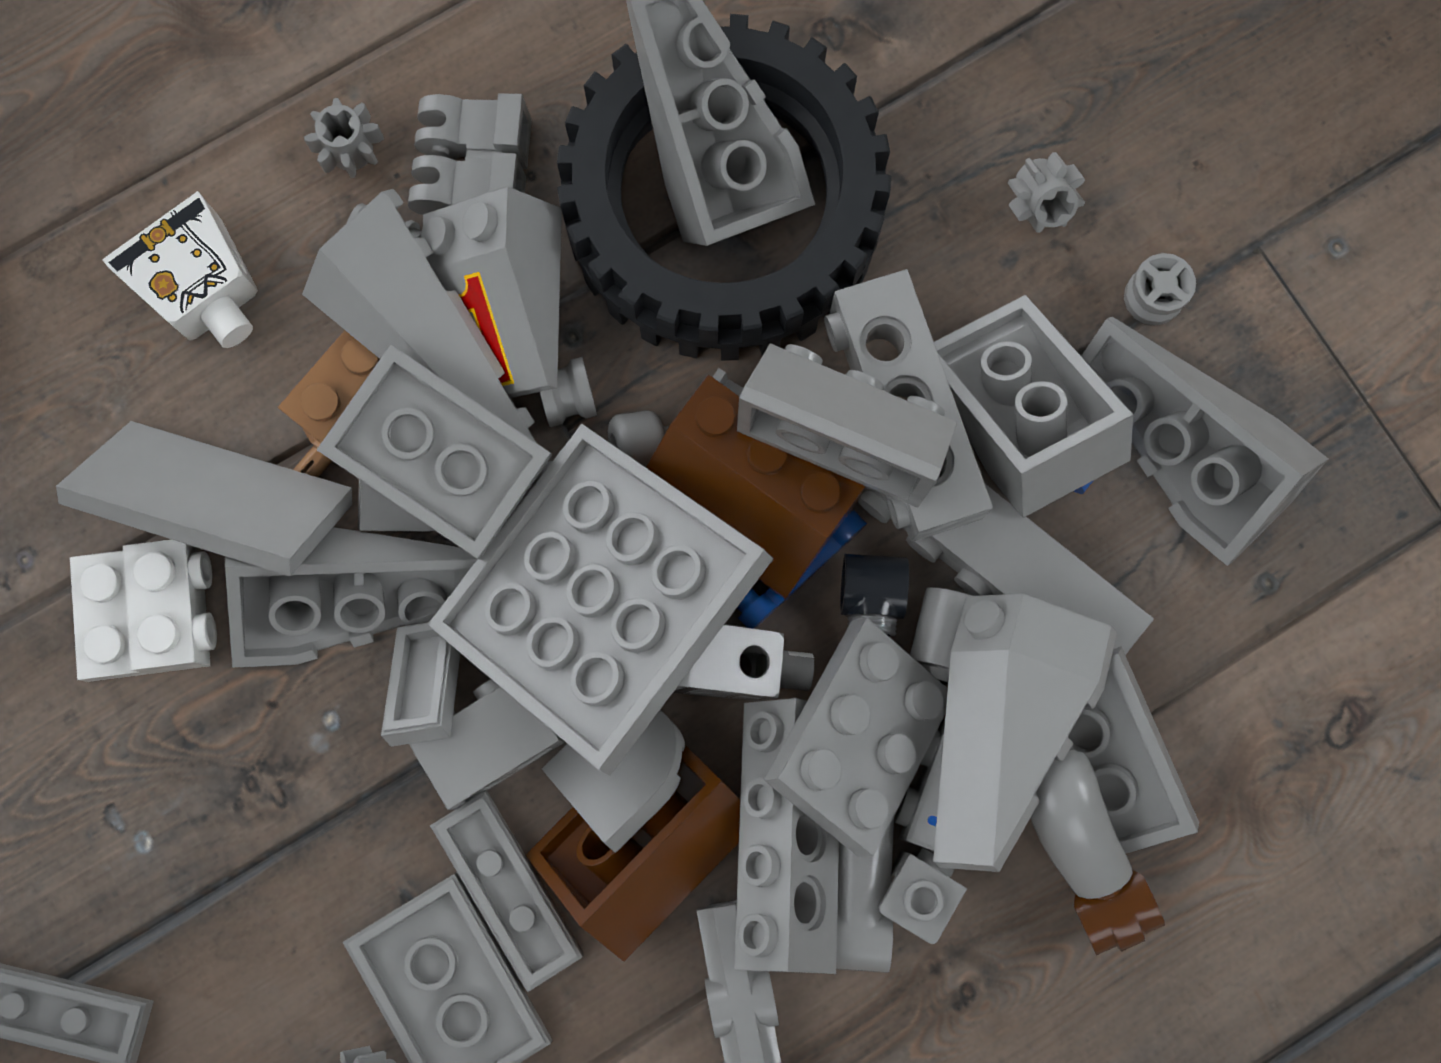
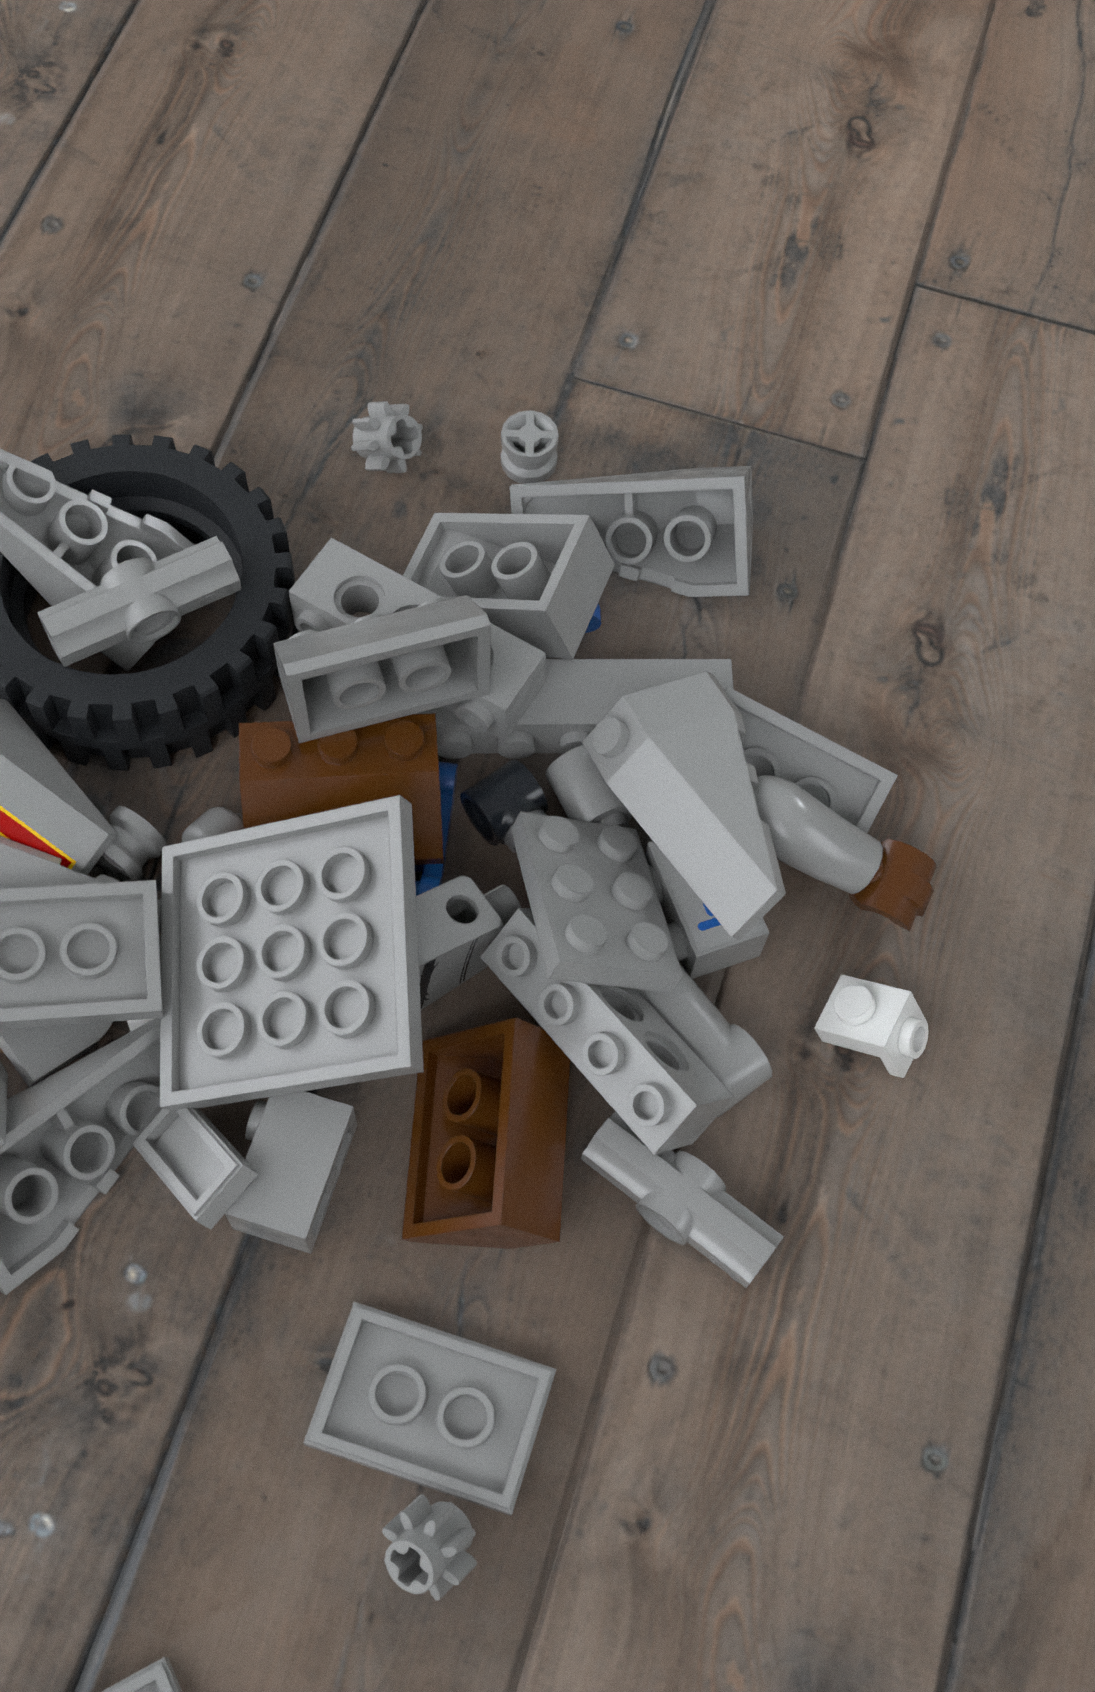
camera: 45 degrees left, 15 degrees down
(507, 891) = (410, 1280): light grey tile -> none
(635, 790) = (428, 1109): light grey tile -> none
(713, 210) = (140, 600): none -> light grey piece
(921, 895) = (744, 988): light grey bracket -> none
(1005, 998) = (874, 1022): none -> white bracket

